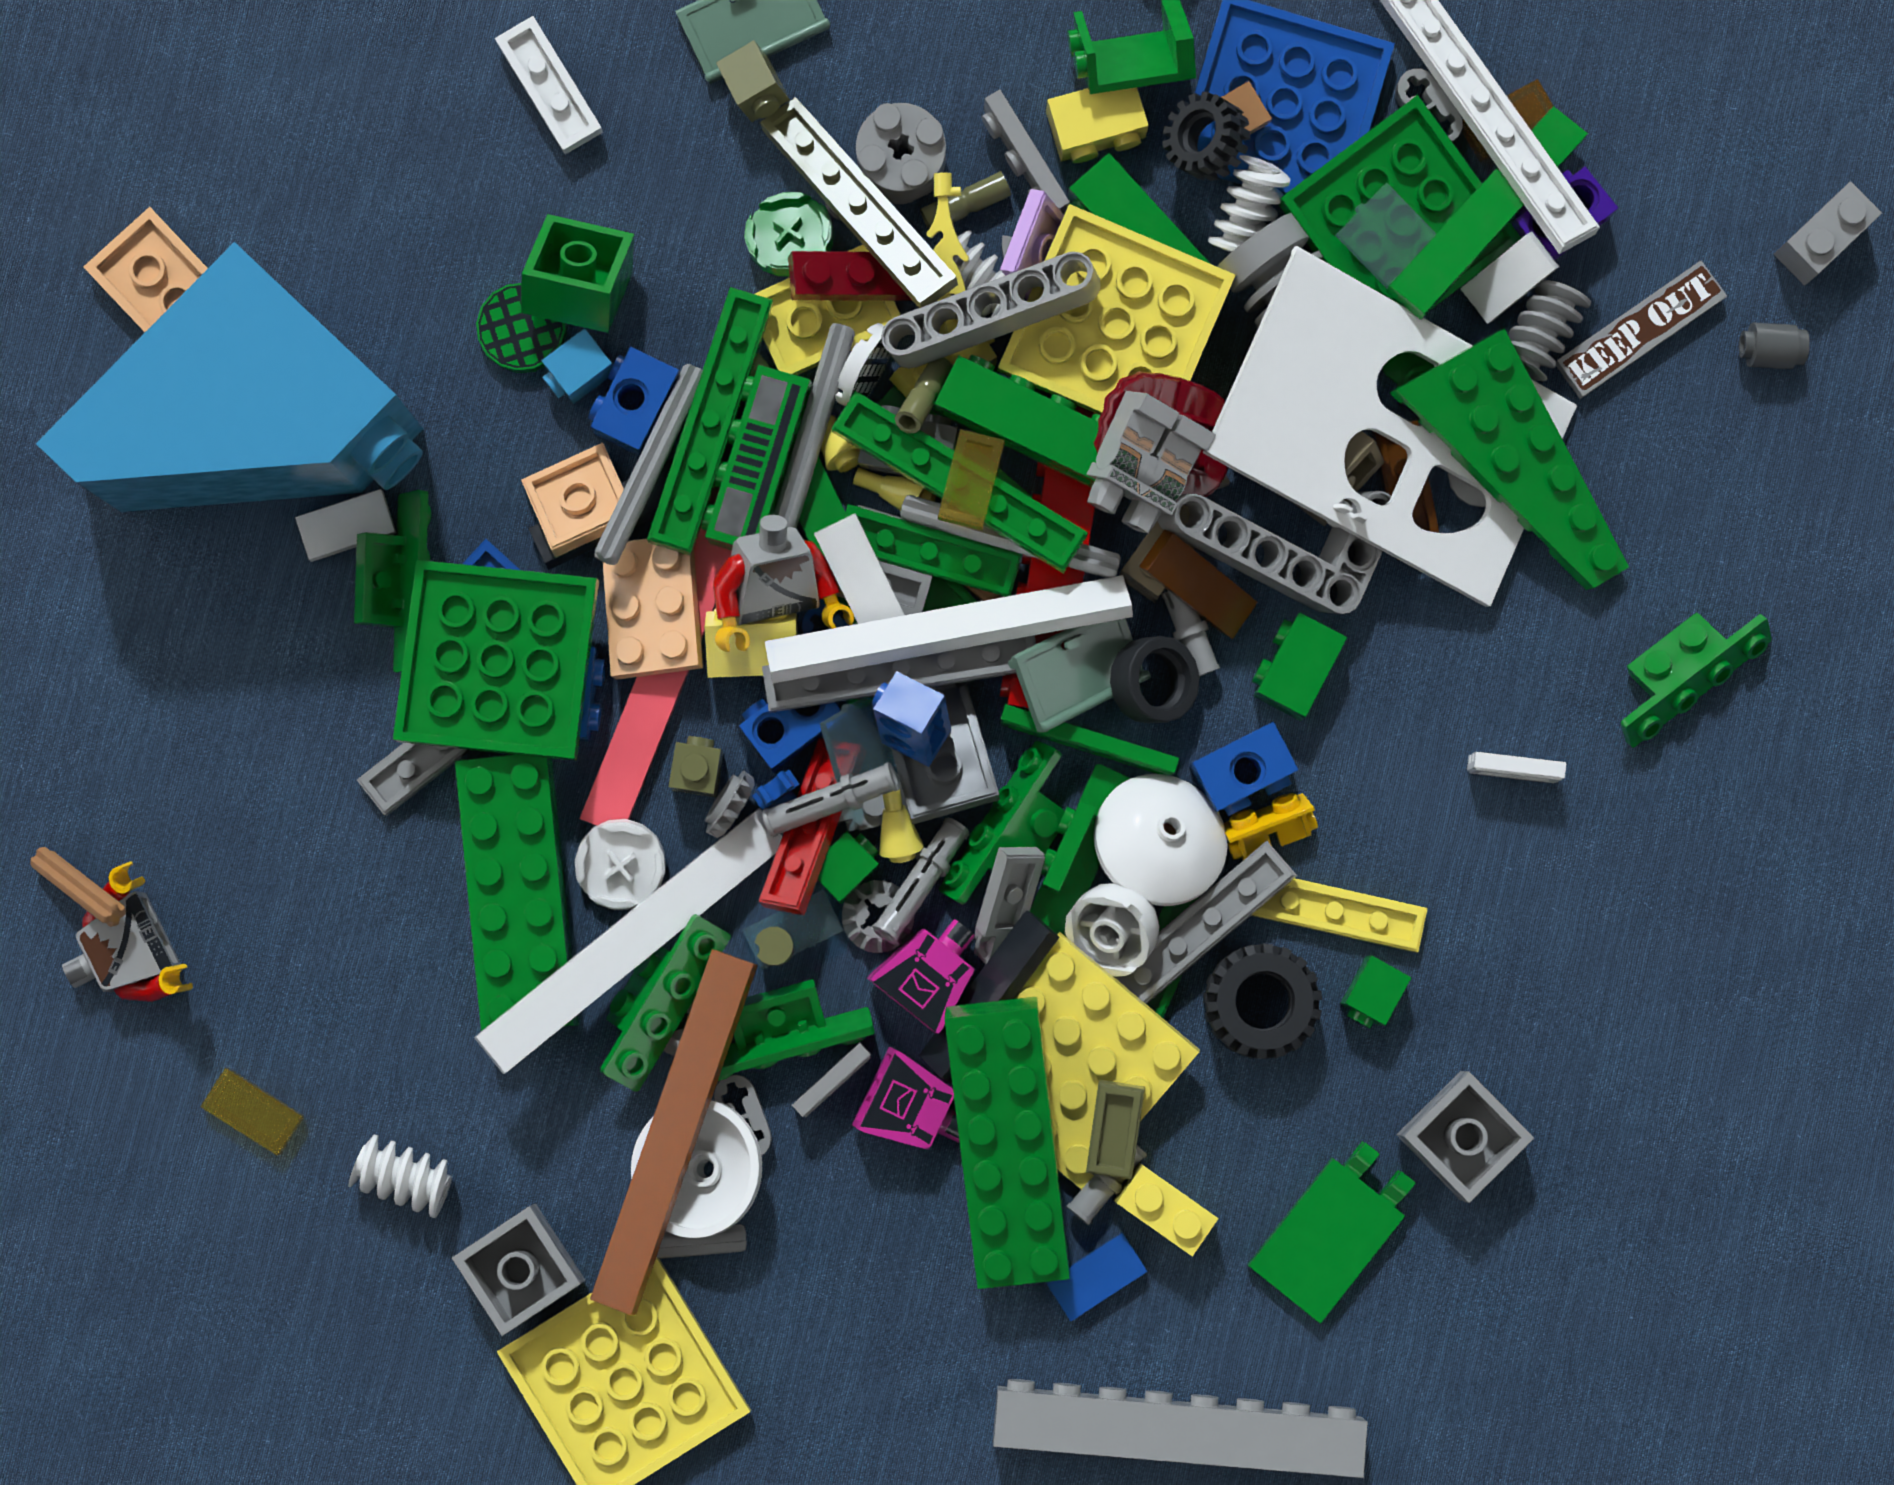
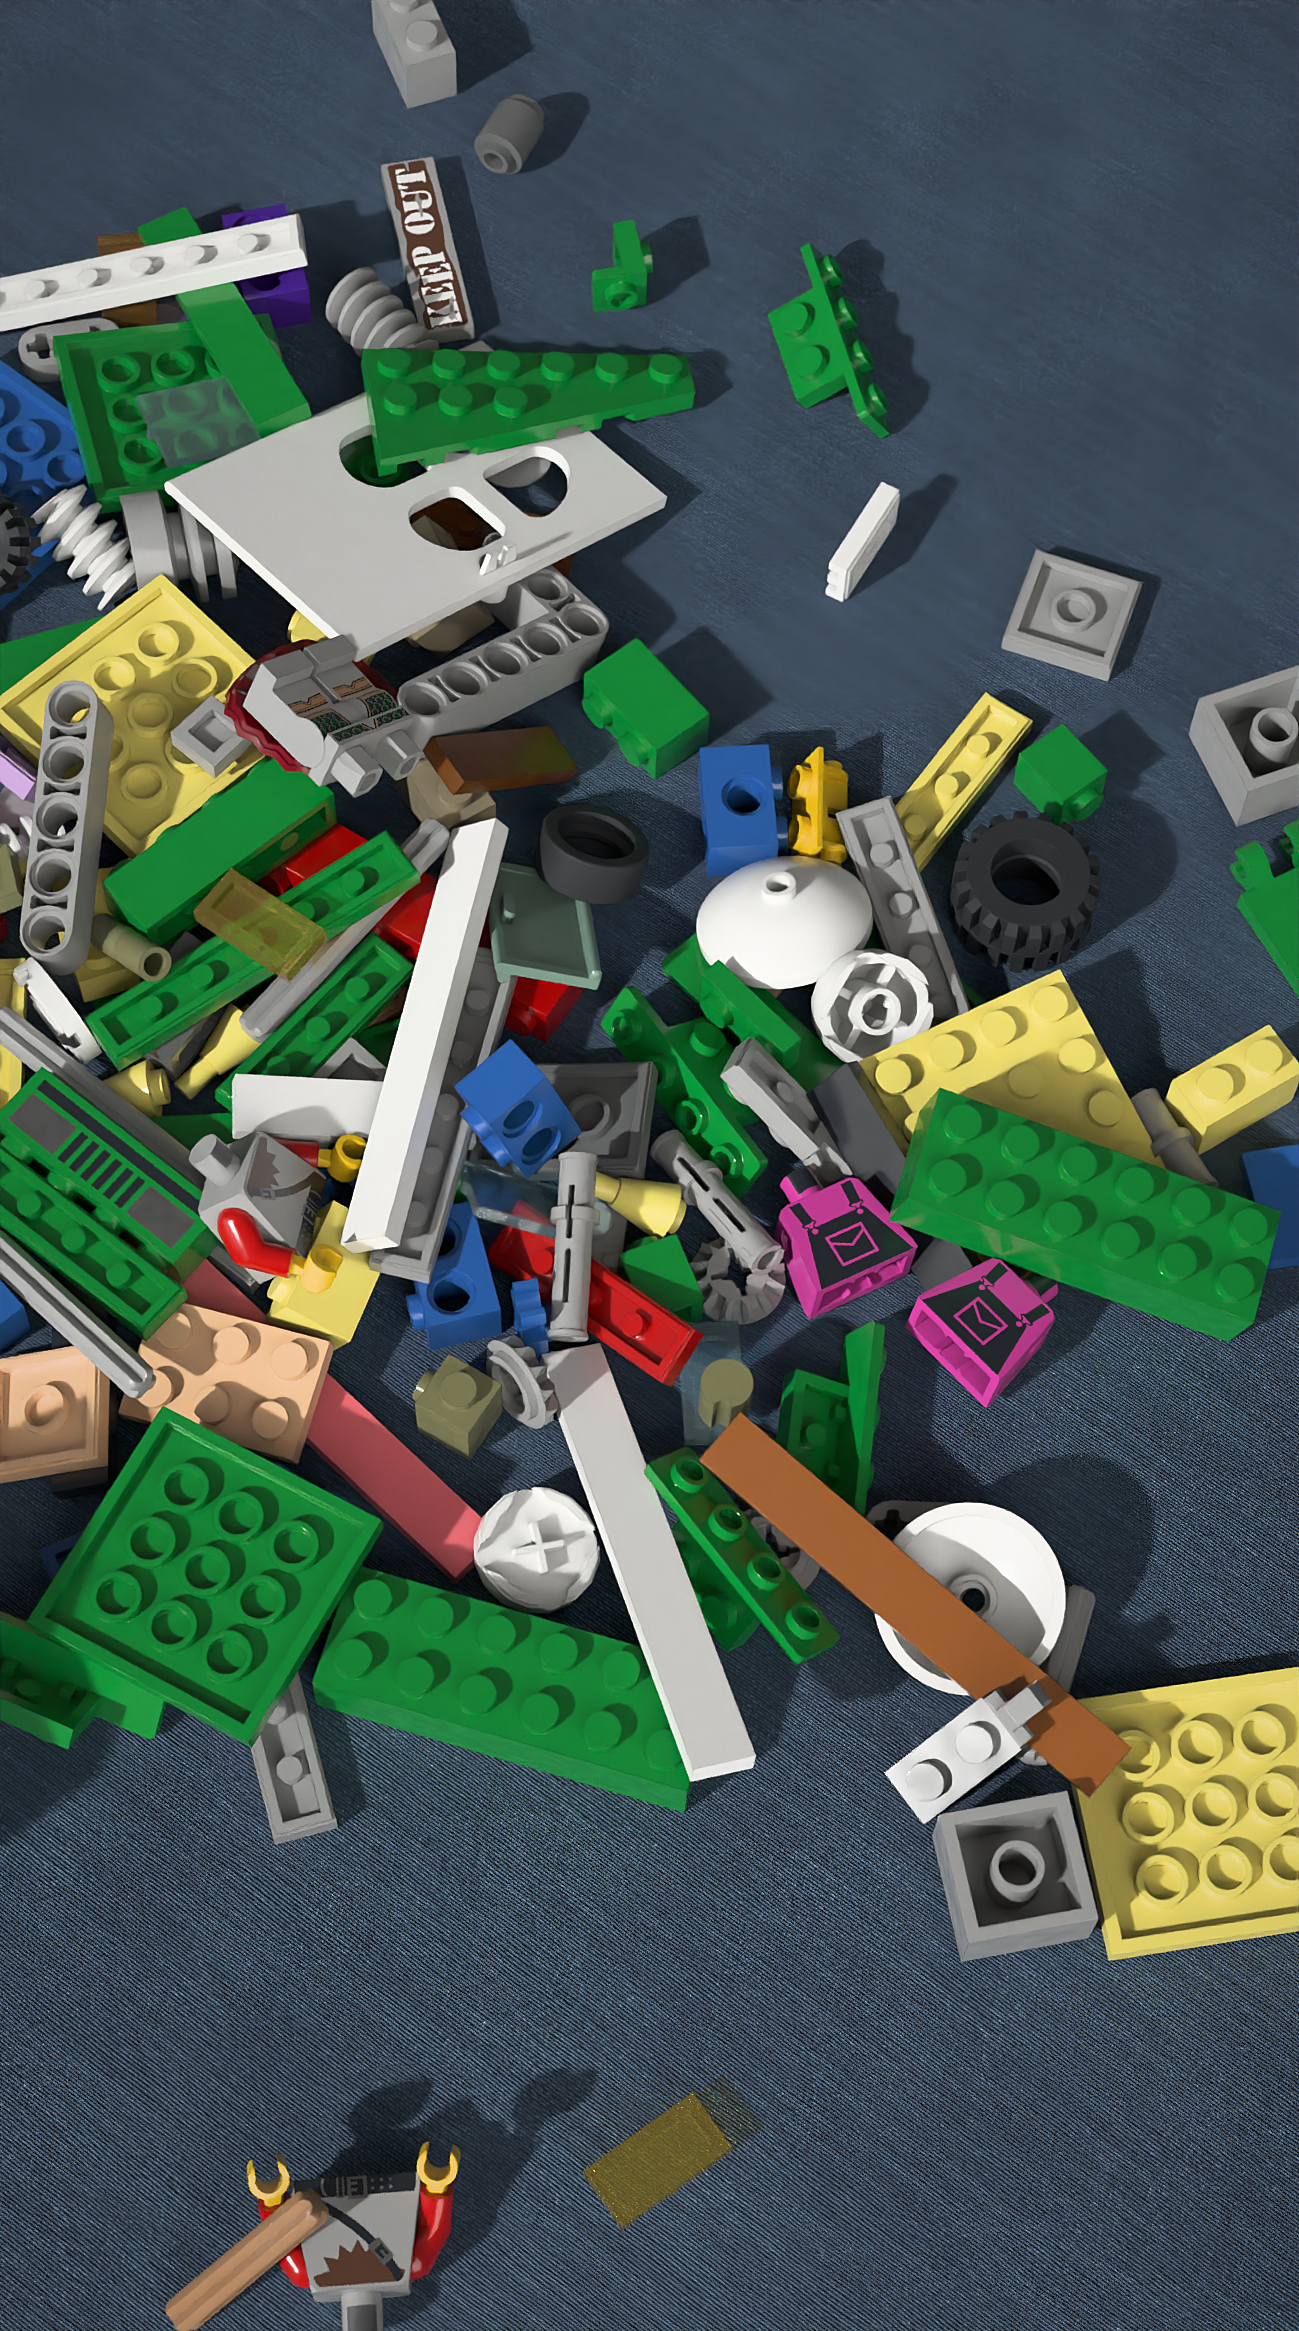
camera: 65 degrees left, 20 degrees down
(401, 1175) = (825, 1983): white piece -> none
(590, 1206) = (966, 1750): none -> hinge
(832, 1080) = (921, 1404): light grey tile -> none
(1092, 743) = (629, 959): green tile -> none
(1104, 373) = (210, 738): none -> light grey plate
(1115, 1129) = (1116, 1096): olive tile -> none
(1191, 633) = (537, 802): light grey pin -> none
(1509, 277) = (306, 334): white tile -> none
(1528, 946) = (1071, 615): none -> light grey tile
(1696, 490) = (626, 283): none -> green bracket

